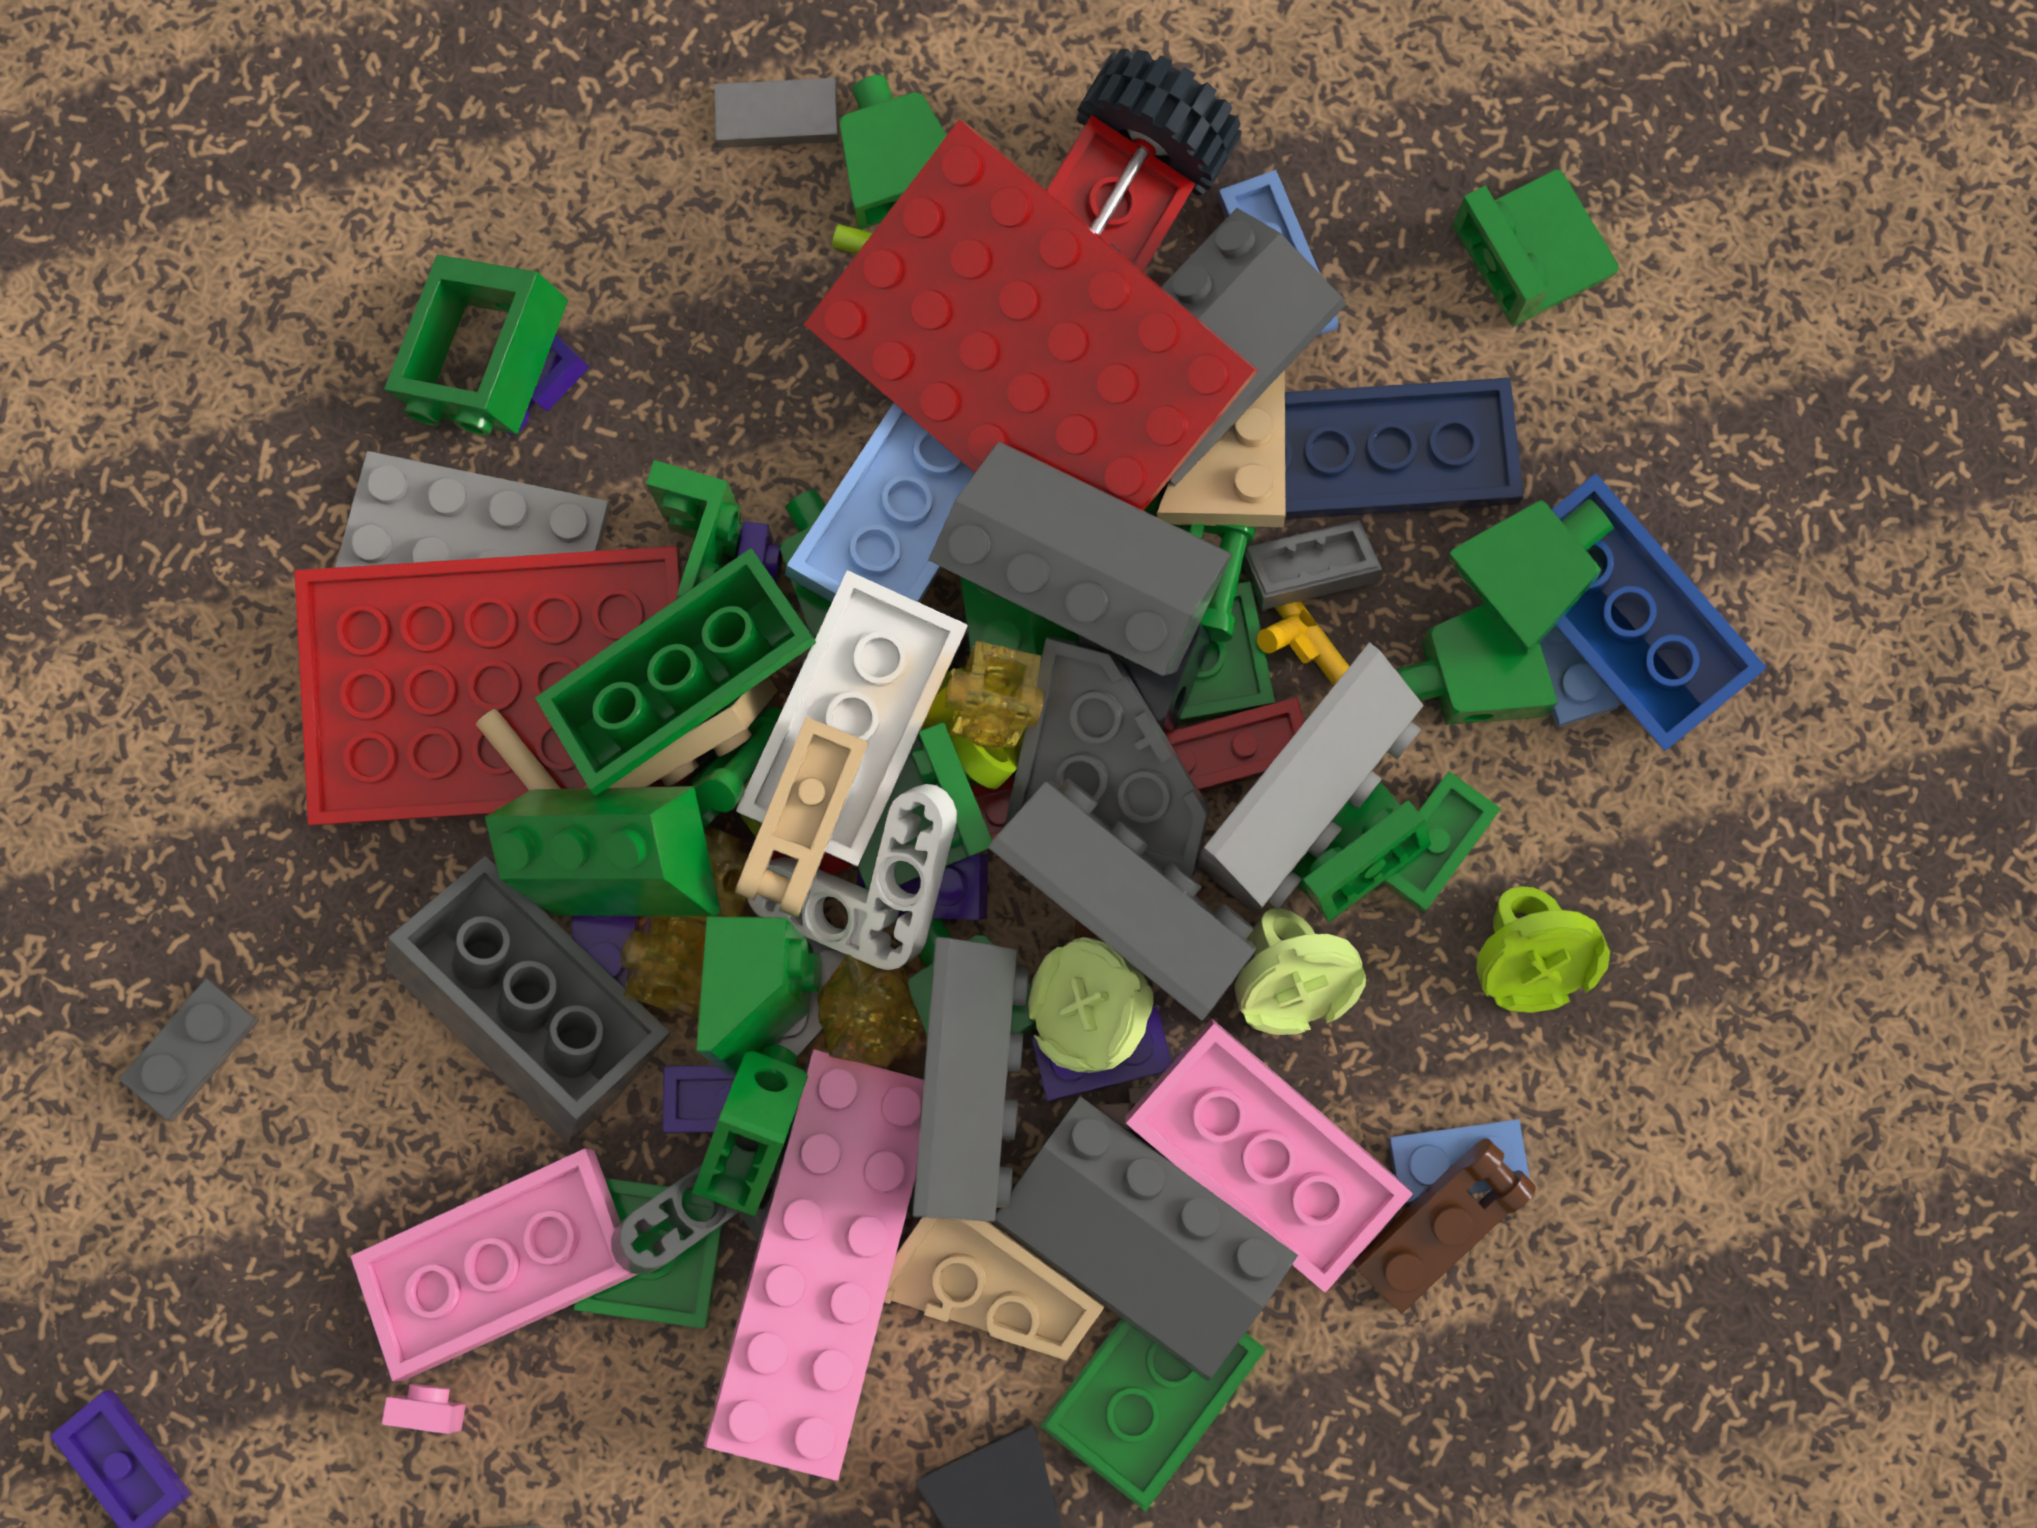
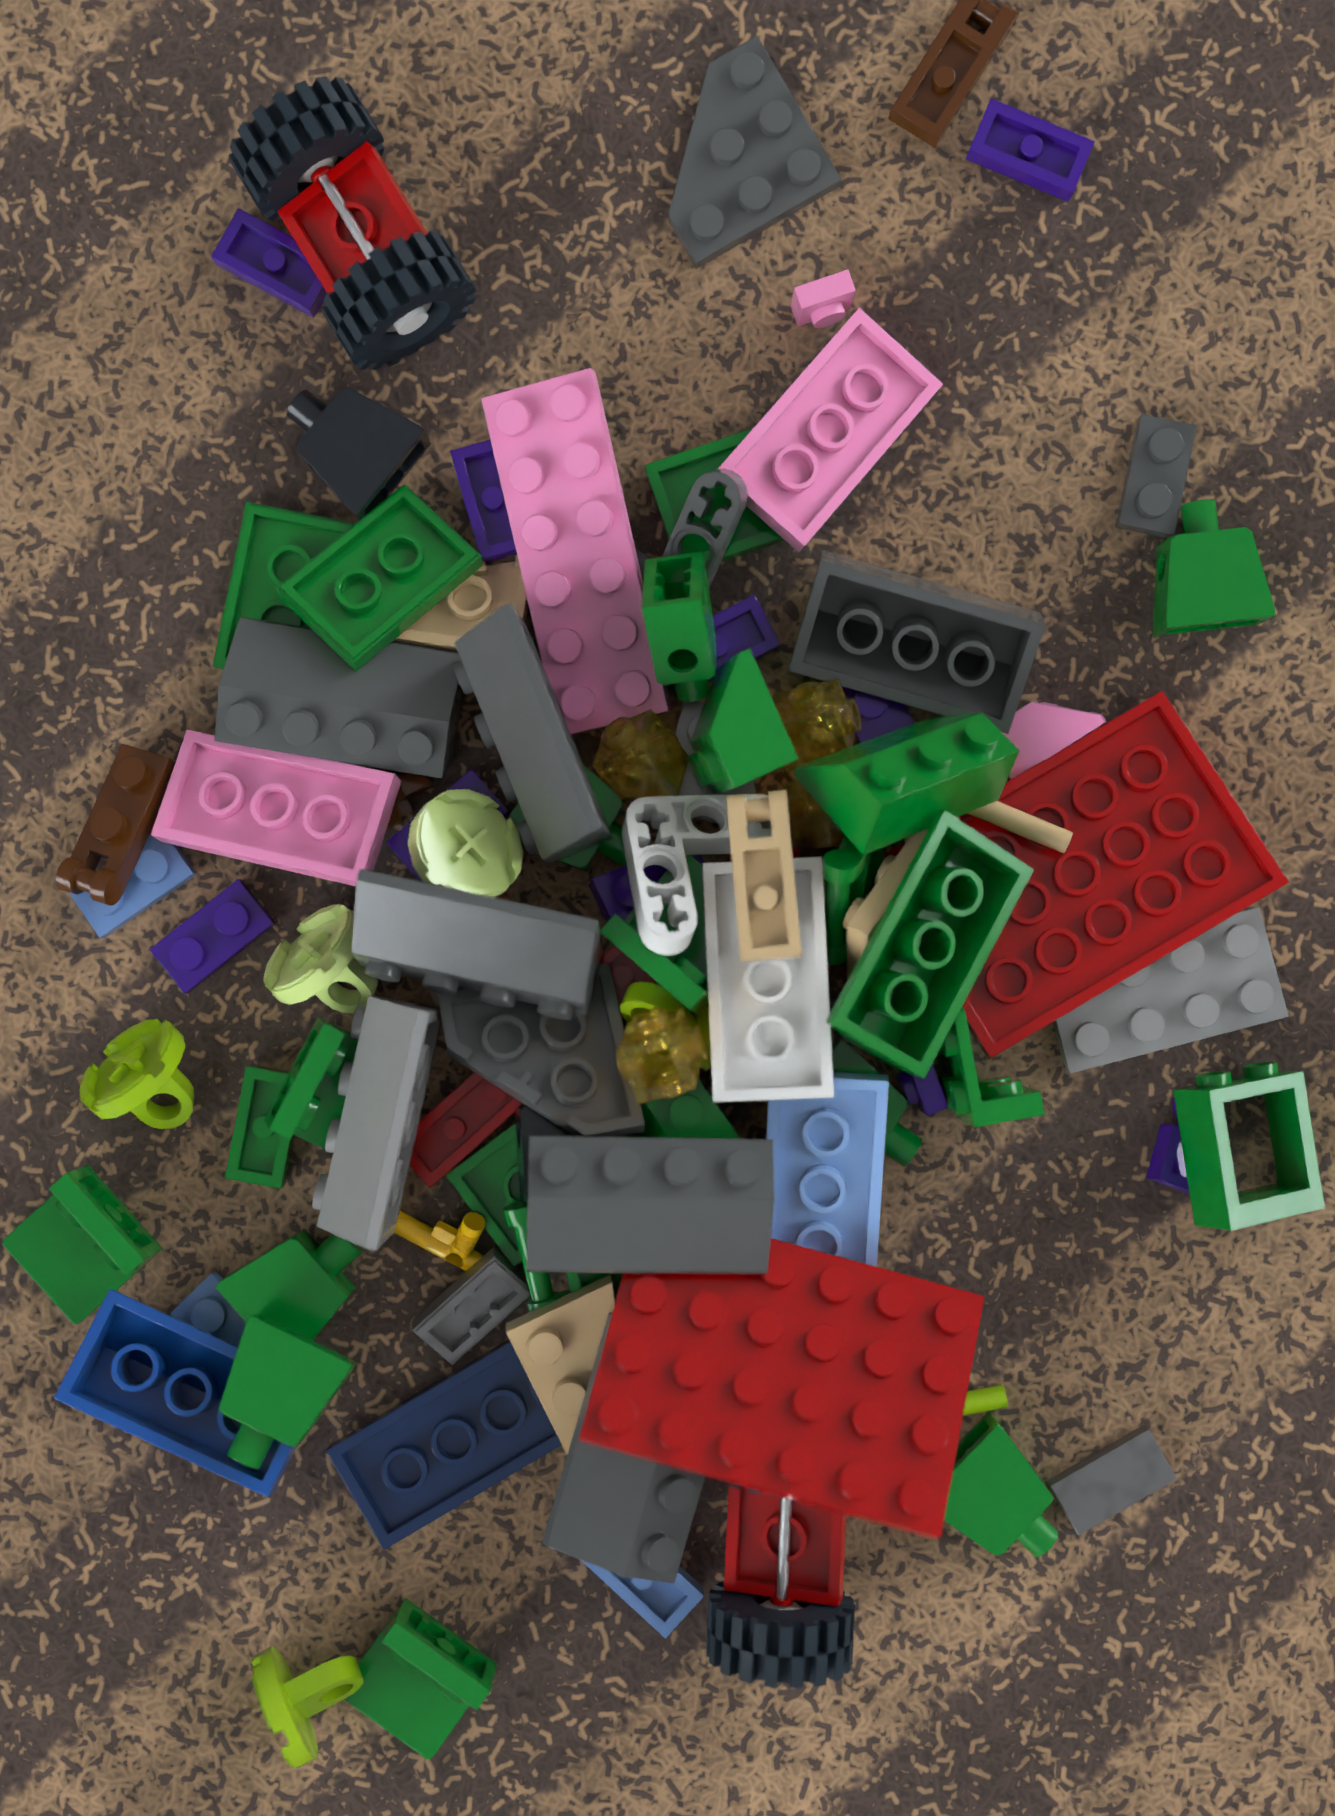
camera: 150 degrees right, 10 degrees up
(197, 916) = (1208, 576): none -> green torso
(442, 844) = (1046, 729): none -> bright pink slope
(889, 1380) = (484, 500): none -> dark purple plate
(1041, 1347) = (380, 577): none -> green tile
(1400, 1063) = (212, 936): none -> dark purple plate
(1662, 278) = (292, 1701): none -> lime tile
(1679, 815) = (81, 1244): none -> green bracket

